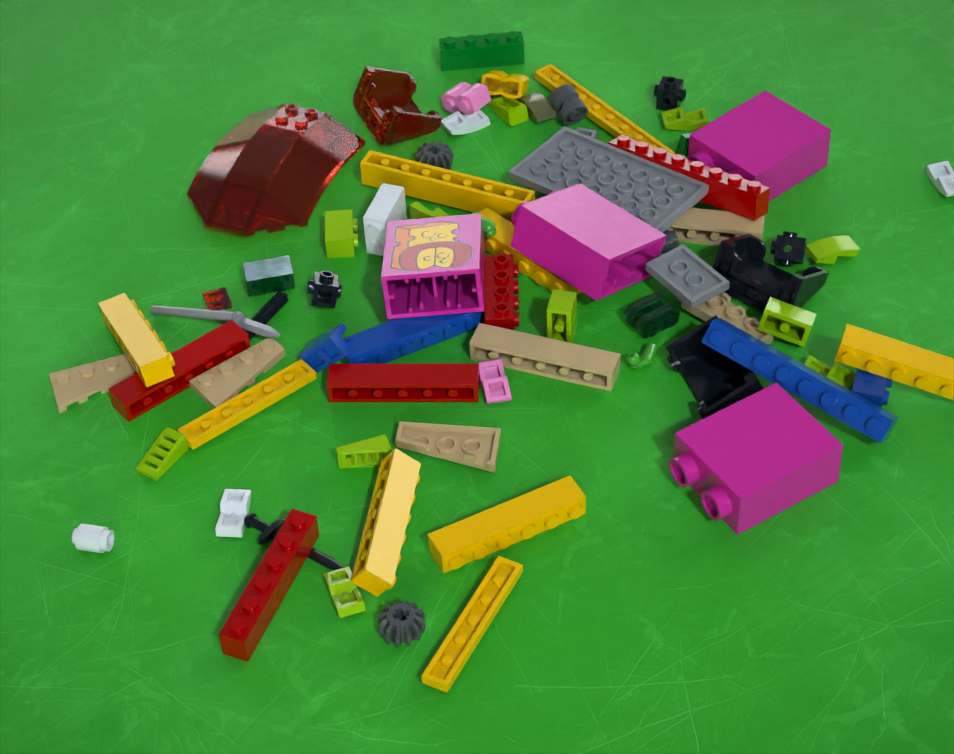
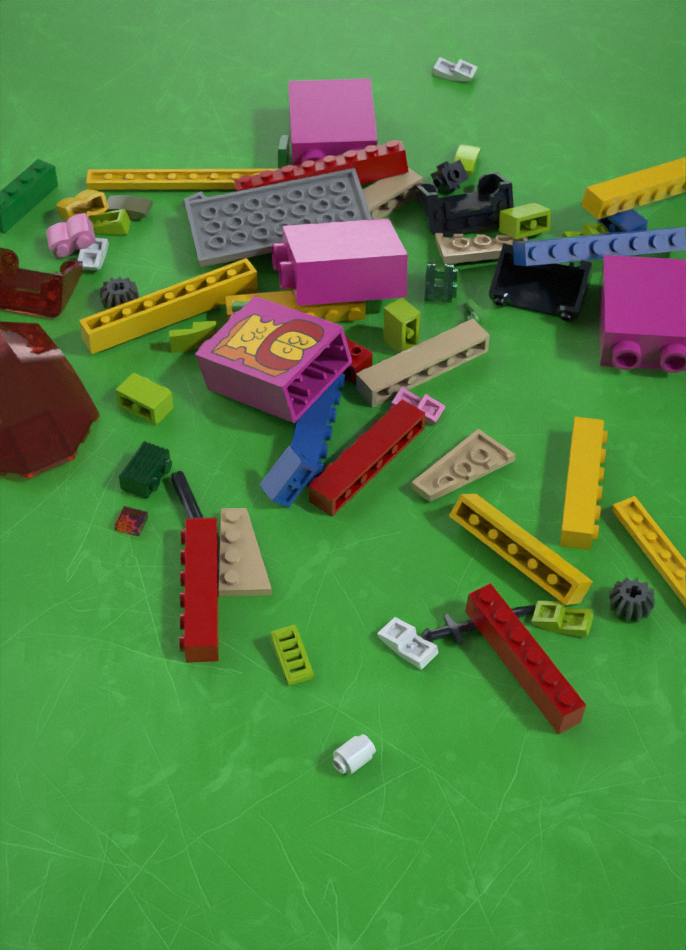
camera: 55 degrees left, 5 degrees up
(85, 380) = (138, 663): tan wing -> none
(137, 339) = (143, 594): yellow brick -> none
(193, 313) = (139, 542): light grey bar -> none
(247, 403) = (289, 565): yellow plate -> none
(253, 326) = (200, 512): light grey sword -> none
(324, 289) = (209, 443): black brick -> none
(370, 451) = (428, 518): lime slope -> none
(386, 206) = (171, 360): white brick -> none
(568, 104) = (149, 182): dark grey wheel -> none
(669, 93) = (207, 133): black brick -> none
(678, 120) = (239, 144): lime slope -> none
(687, 276) = (432, 238): light grey plate -> none

